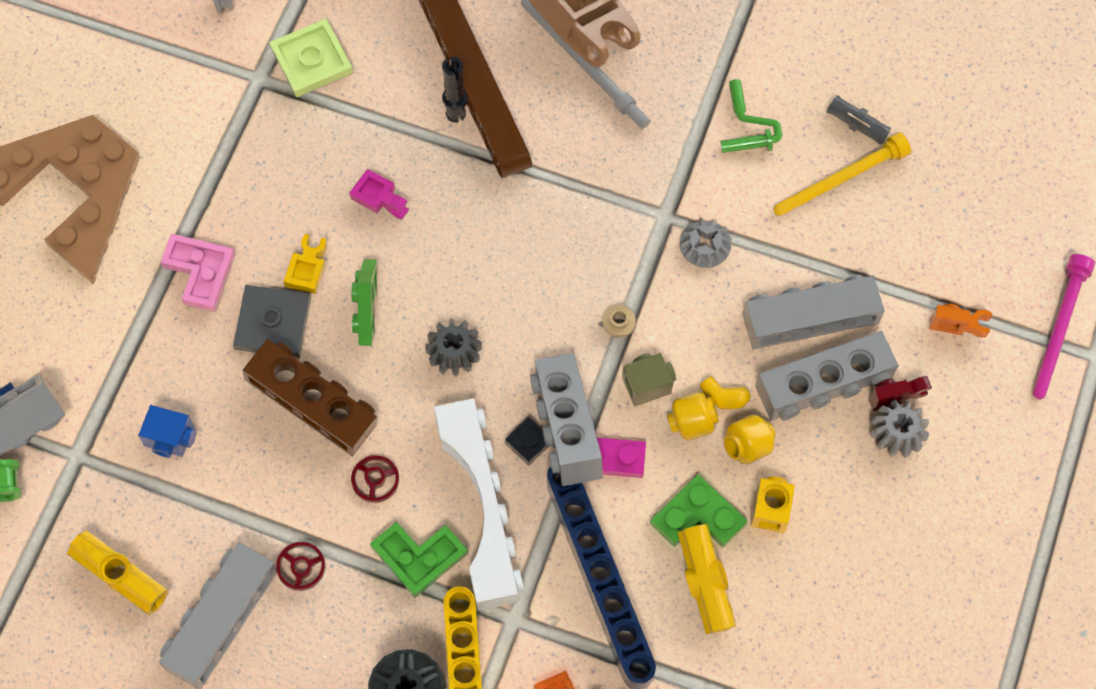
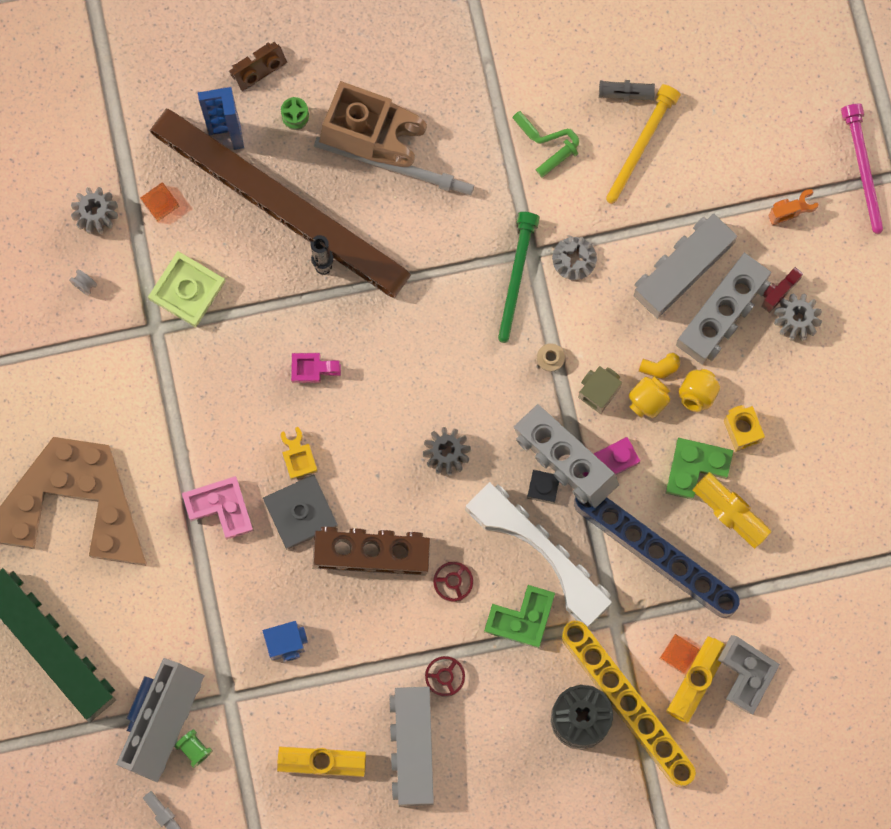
camera: 30 degrees left, 10 degrees up
(364, 293) = (361, 455): bright green plate -> none
(679, 184) = (527, 223): none -> green piece

